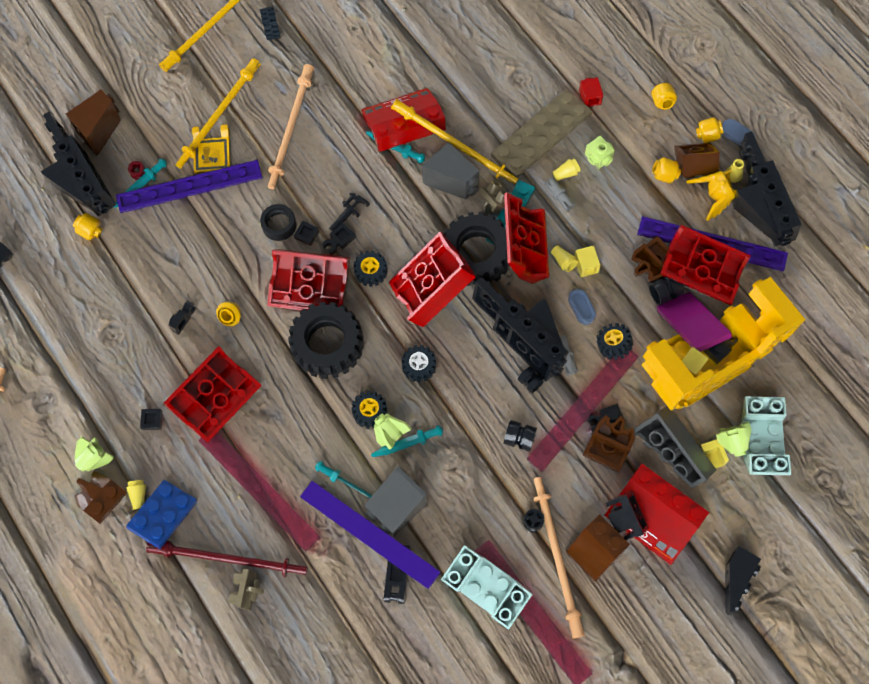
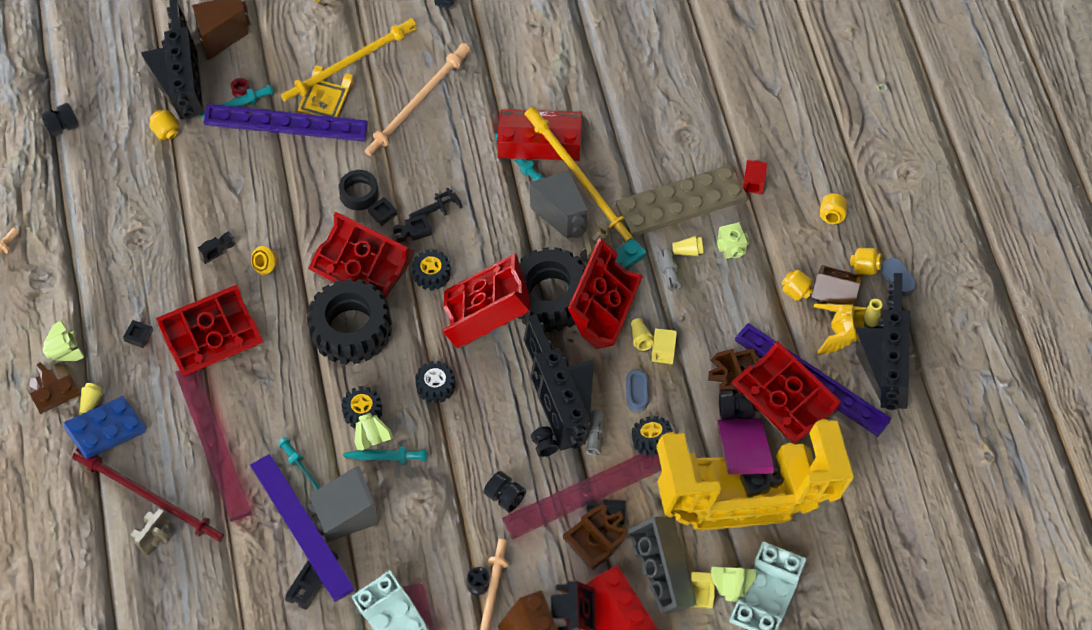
camera: 20 degrees right, 10 degrees down
(694, 360) = (723, 476): light yellow panel -> none

